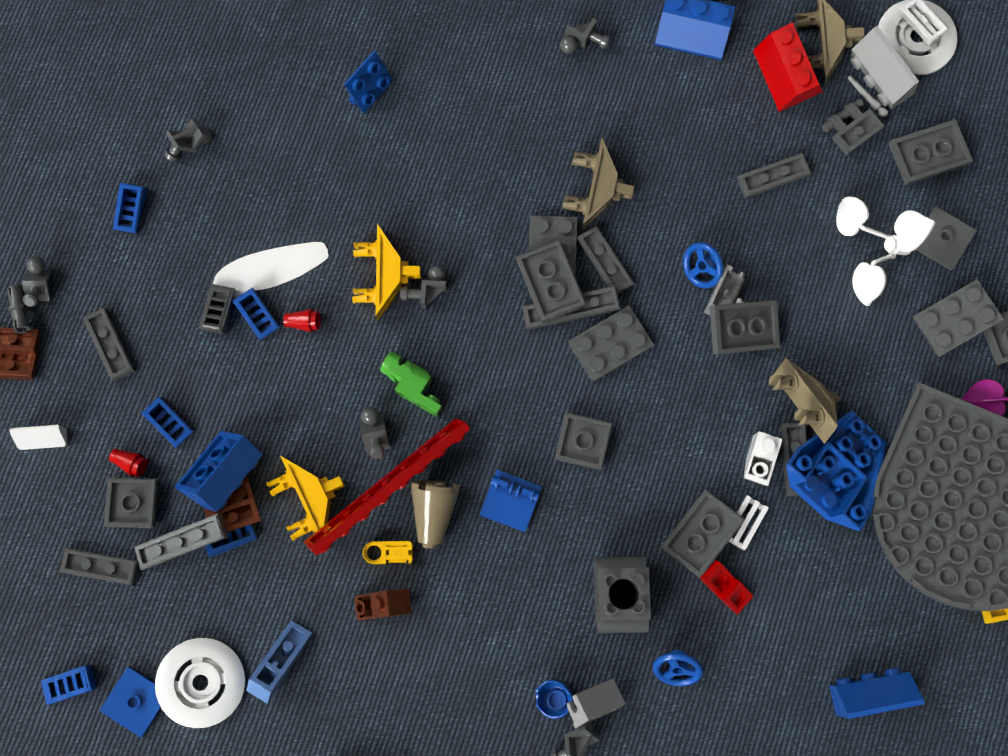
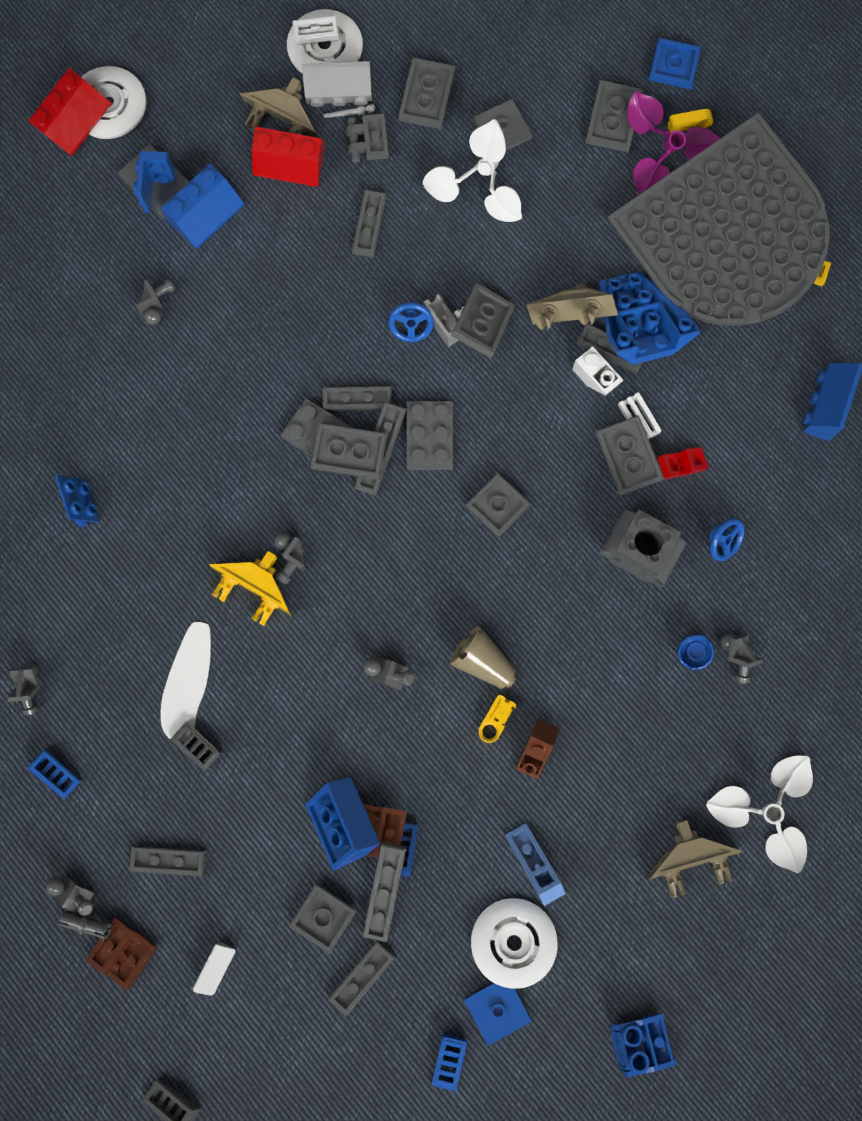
camera: 60 degrees left, 0 degrees up
(130, 462) = (285, 900): red cone -> none
(161, 428) = (271, 855): blue slope -> none
(243, 310) = (199, 716): blue slope -> none
(303, 320) = (253, 676): red cone -> none
(313, 493) = (409, 753): yellow connector -> none
(381, 491) = (441, 686): red plate -> none
(412, 382) = (365, 615): bright green plate -> none
(510, 500) = (512, 593): blue hinge -> none
(595, 702) = (718, 620): light grey hinge -> none
(604, 185) = (291, 359): dark tan connector -> none
(957, 318) = (574, 156): dark grey plate -> none

